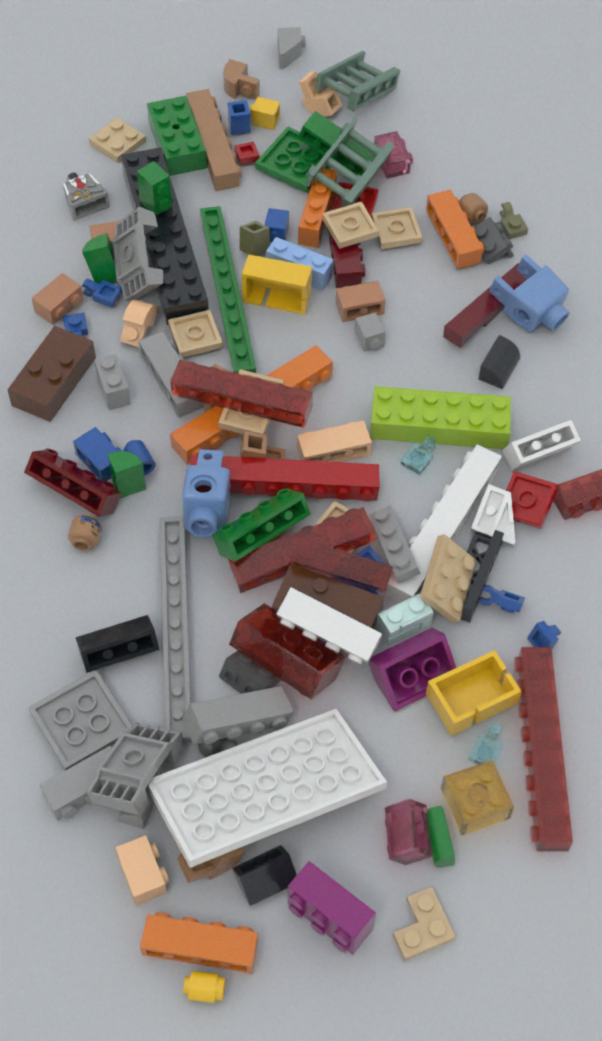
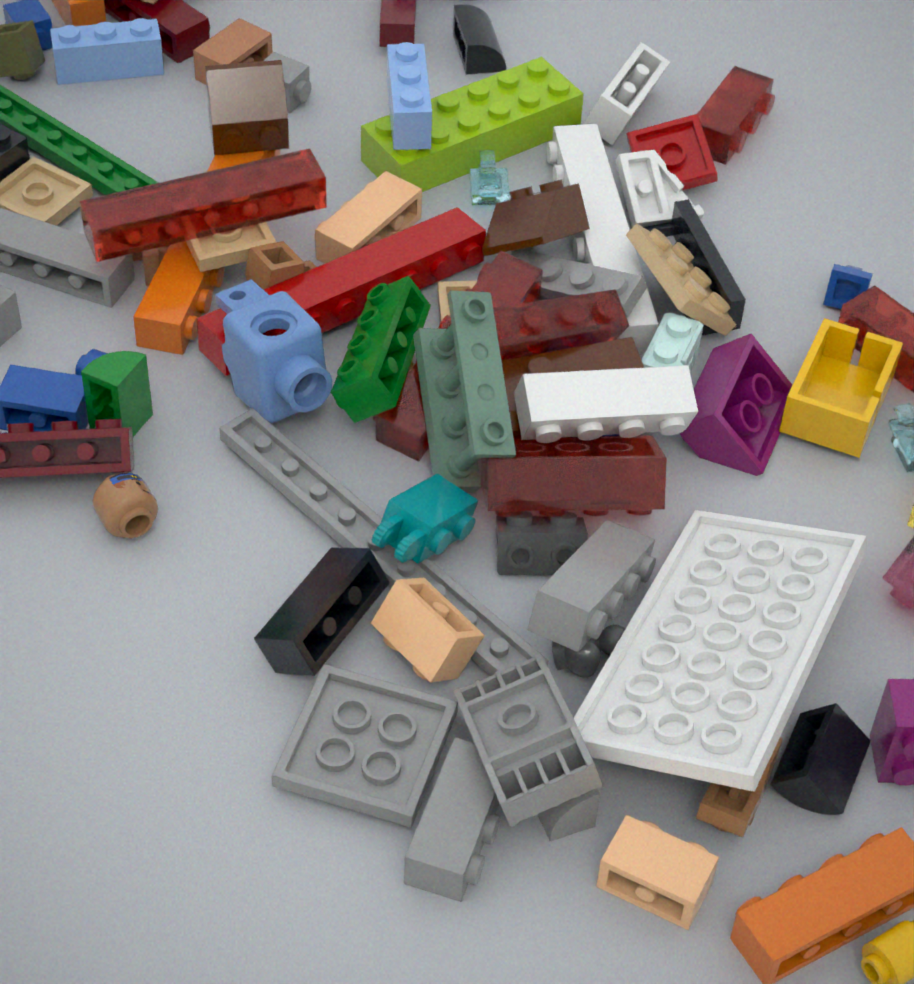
camera: 40 degrees left, 10 degrees down
(151, 684) = (427, 630): none -> light nougat brick
(198, 629) = (426, 519): none -> teal hinge
(262, 576) = (464, 390): none -> sand green fence
(288, 283) = (114, 73): yellow piece -> none
(316, 346) = (247, 107): none -> slope
(402, 385) = (409, 96): none -> light blue brick
(406, 497) = (536, 217): none -> reddish brown slope
(508, 601) = (765, 275): blue plate -> none

